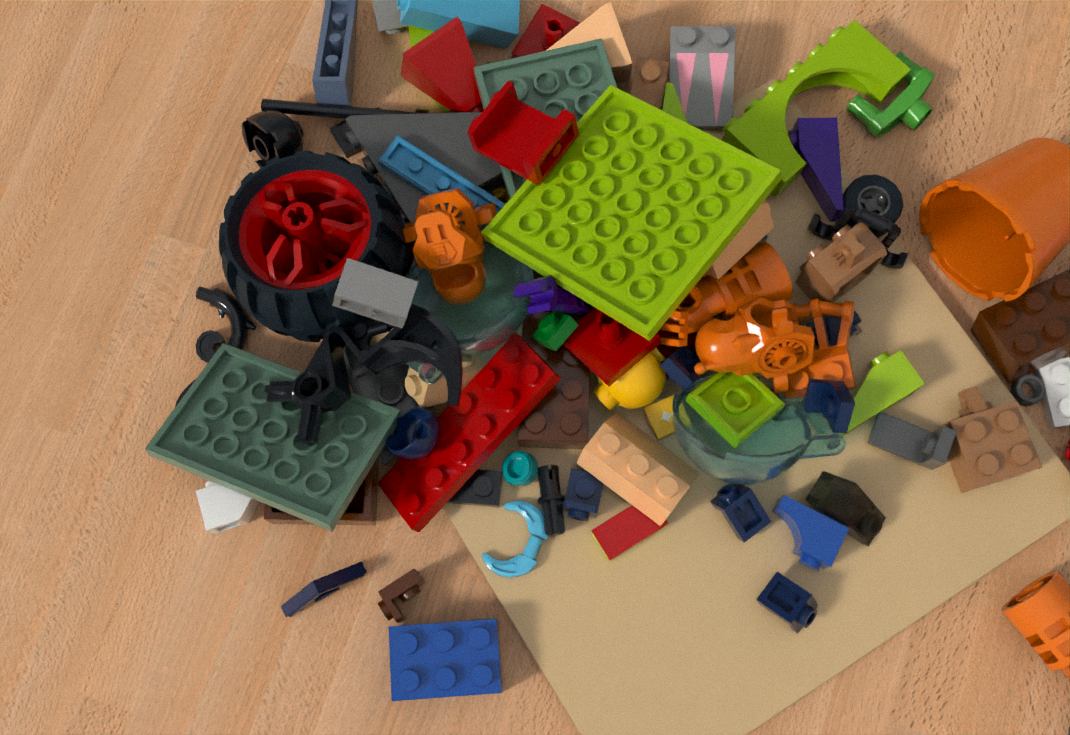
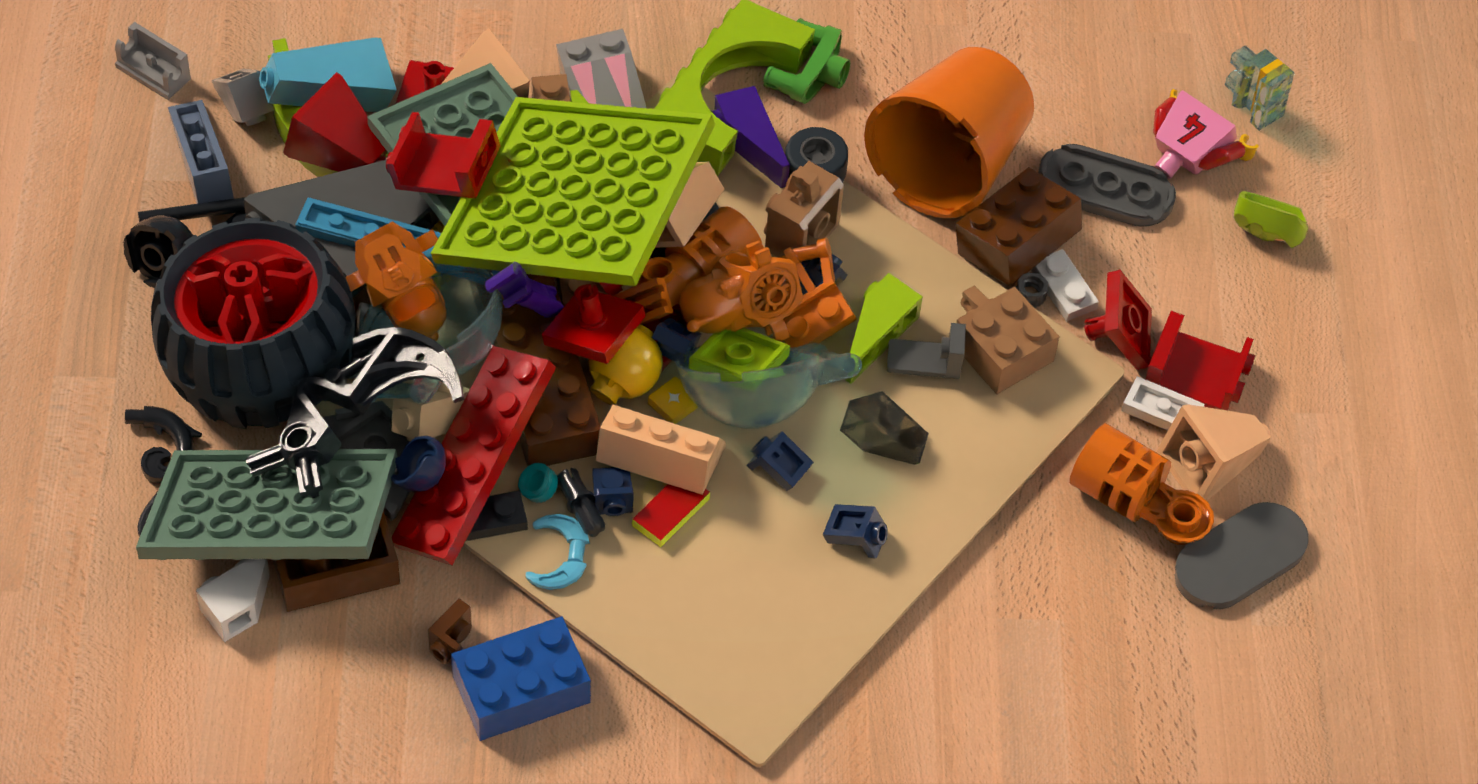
camera: 25 degrees left, 20 degrees down
(322, 587) = (360, 654): dark blue tile -> none
(374, 293) = (346, 319): light grey hinge -> none
(554, 330) = (533, 329): green plate -> none
(814, 534) = (856, 457): blue arch -> none
(832, 401) = (832, 331): dark blue bracket -> none
(866, 217) = (825, 156): black piece -> none

